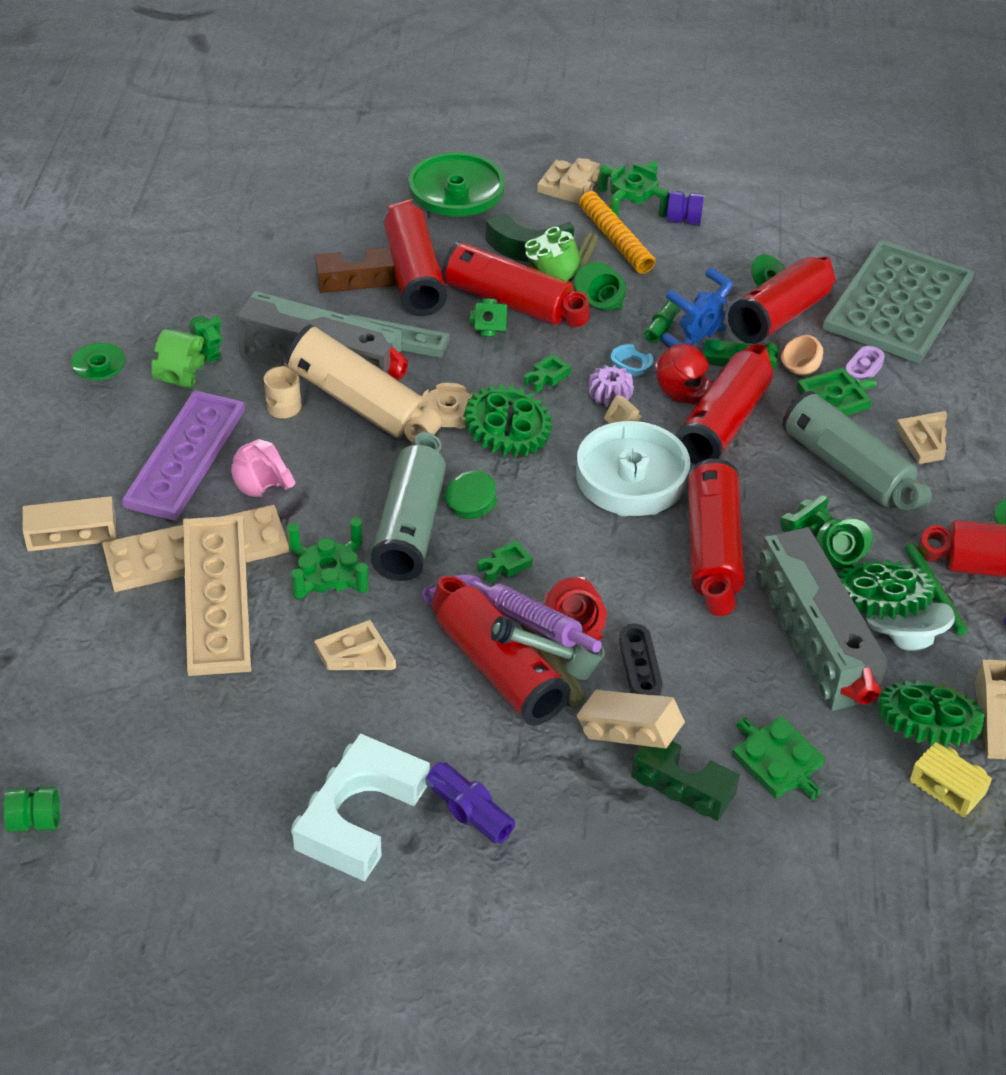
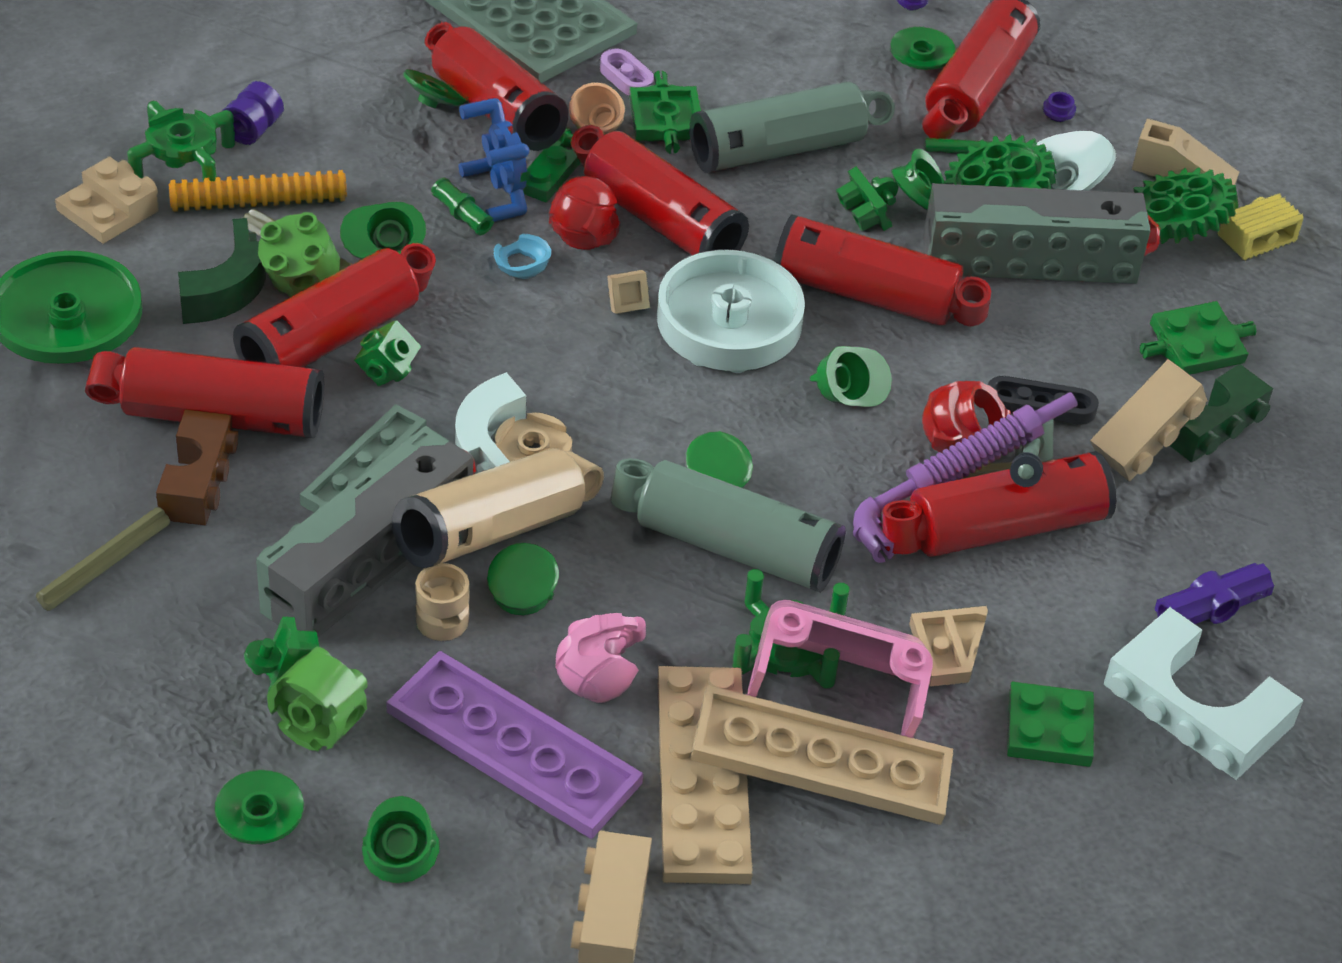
camera: 75 degrees left, 0 degrees up
(92, 424) = (400, 841): none -> green piece
(270, 258) = (102, 559): none -> olive axle
(304, 723) = (1050, 724): none -> green plate
(319, 604) = (857, 642): none -> bright pink windscreen
(323, 427) = (523, 578): none -> green piece
(451, 369) = (483, 414): none -> light aqua arch
(507, 560) = (845, 464): green plate -> none
(527, 424) = (596, 395): green gear -> none
(549, 370) = (513, 333): green plate -> none
(596, 544) = (853, 377): none -> green piece
(609, 382) = (570, 285): lavender gear -> none
(924, 436) = (766, 71): tan wing -> none

